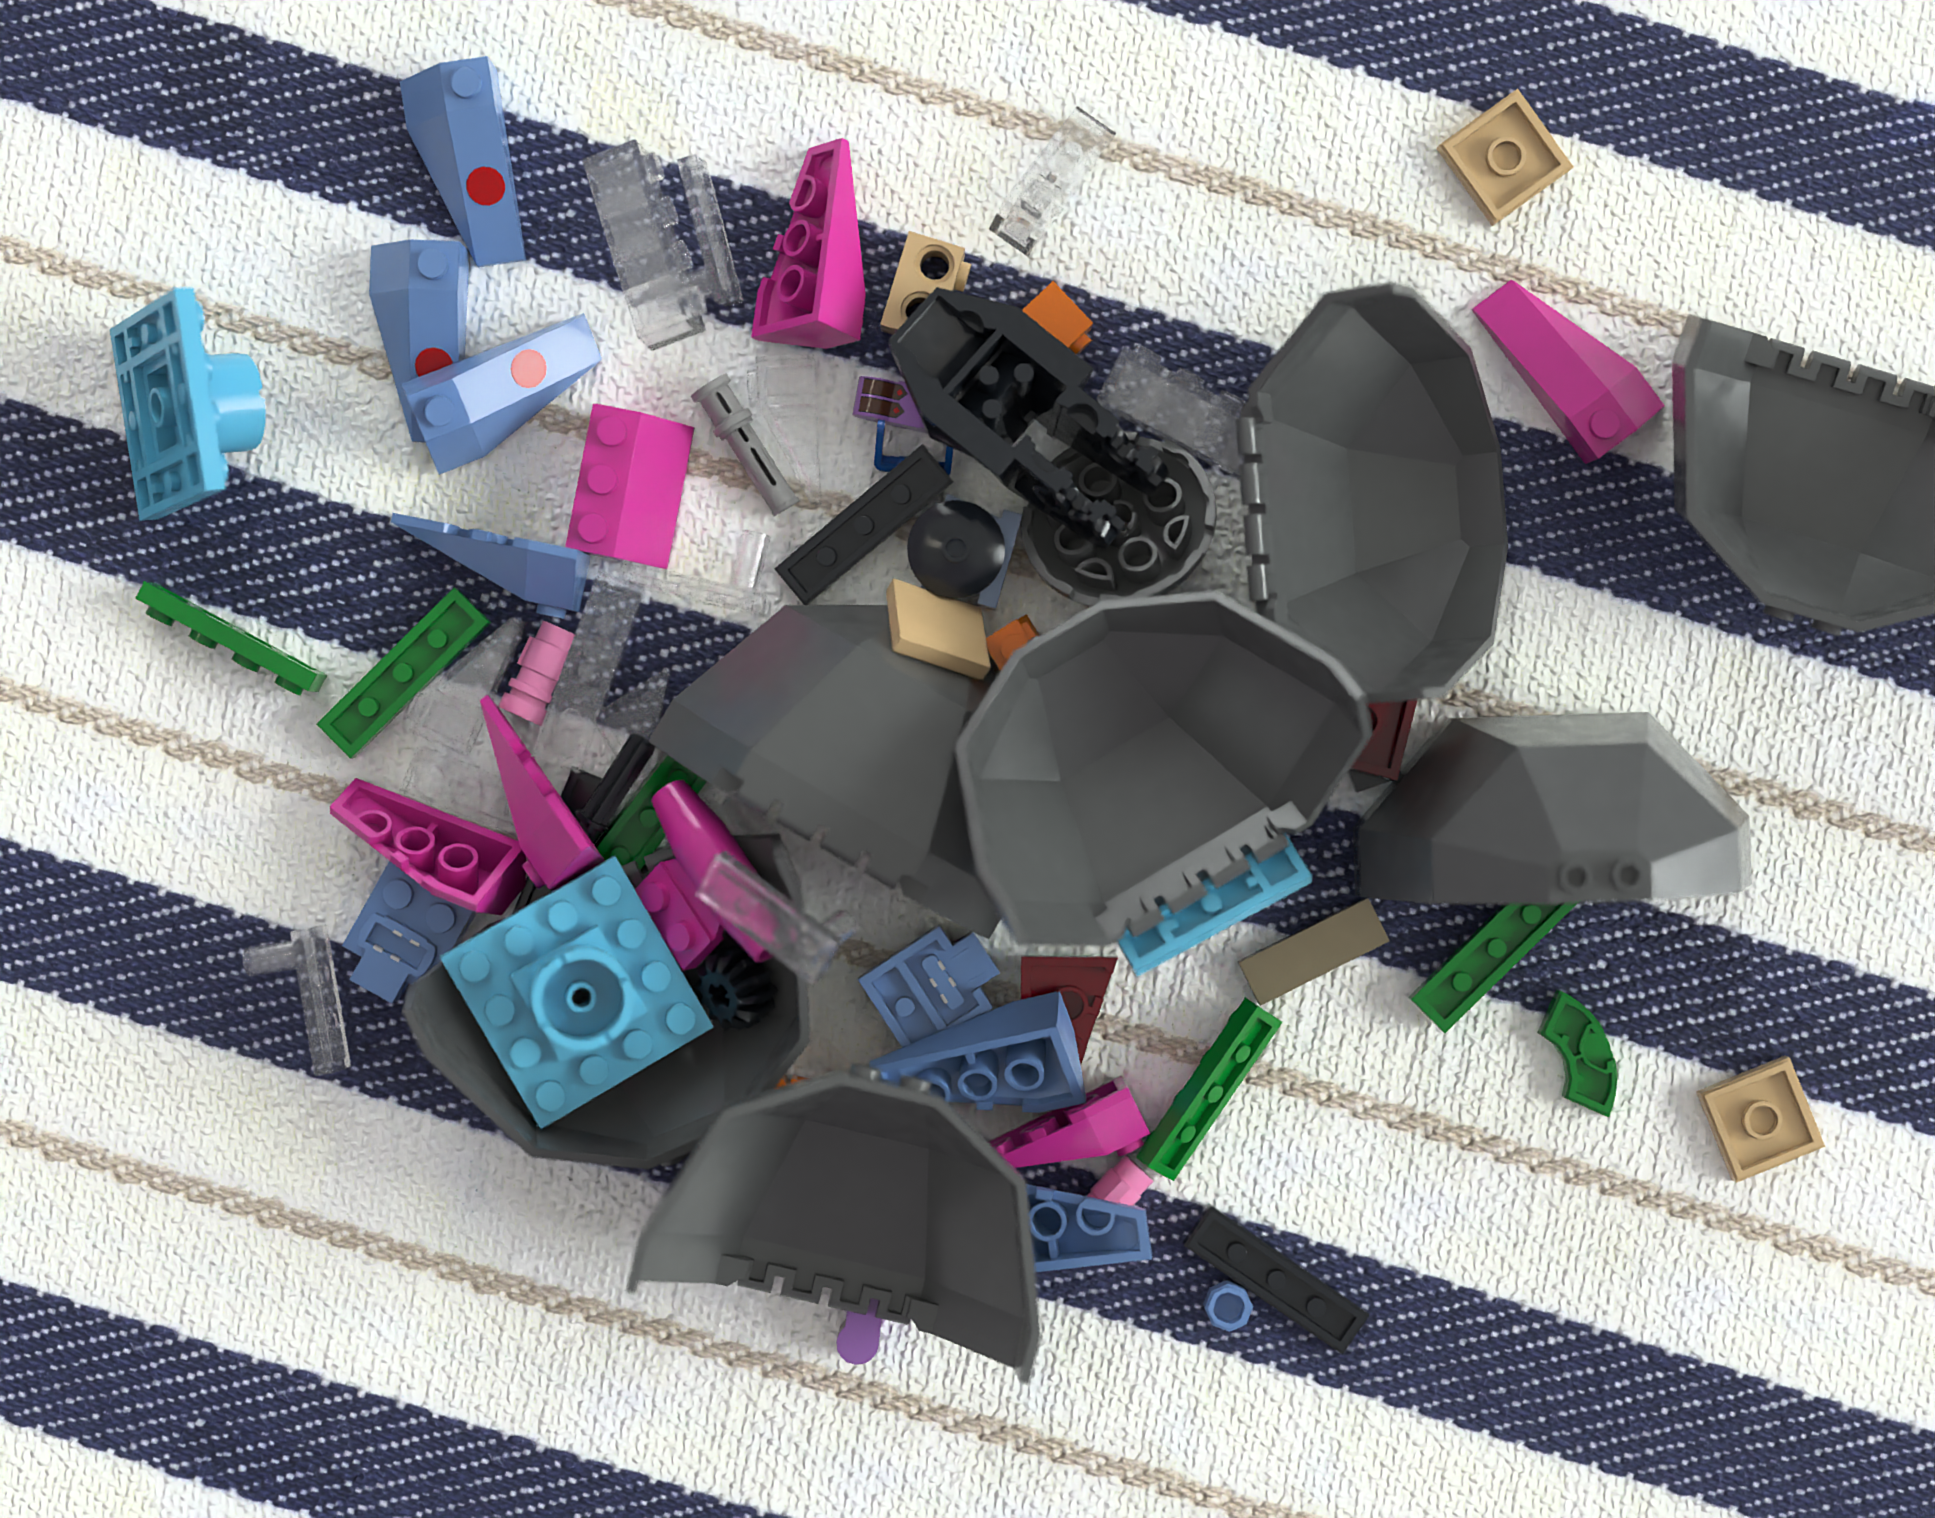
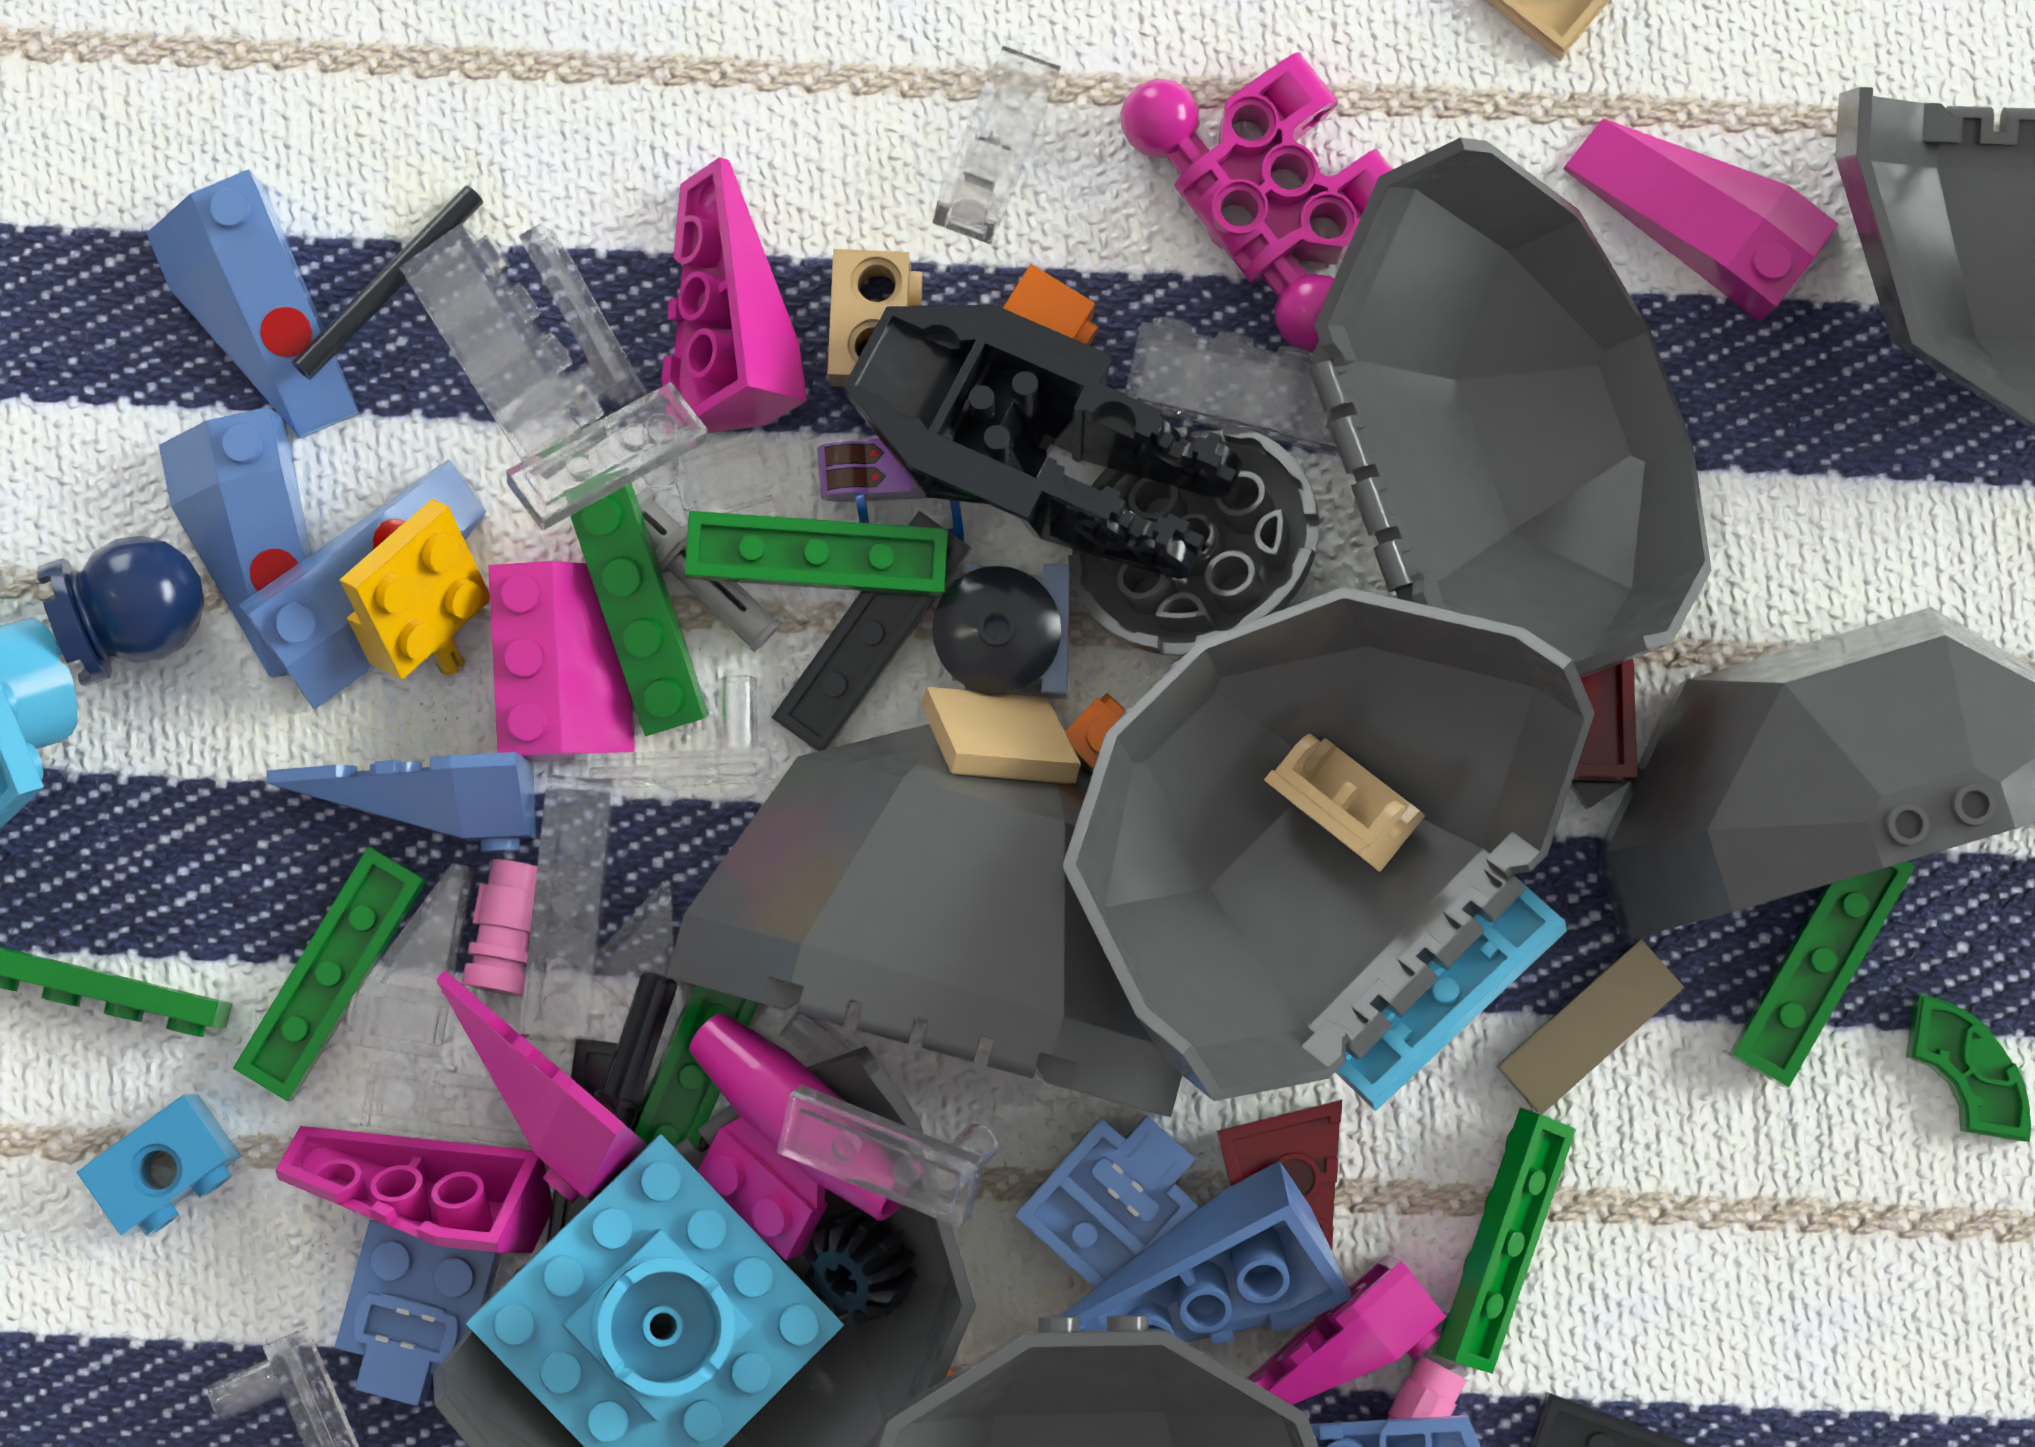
camera: 15 degrees left, 5 degrees down
(217, 782) = (122, 1174): none -> dark azure brick
(318, 360) = (127, 603): none -> dark blue tile
(534, 411) = (415, 594): none -> yellow plate
(568, 168) = (383, 286): none -> black piece
(695, 459) = (639, 612): none -> green plate
(701, 345) = (608, 455): none -> clear piece
(837, 458) = (816, 553): none -> green plate
(1176, 744) = (1345, 800): none -> tan hinge
(1277, 205) = (1285, 104): none -> dark pink connector

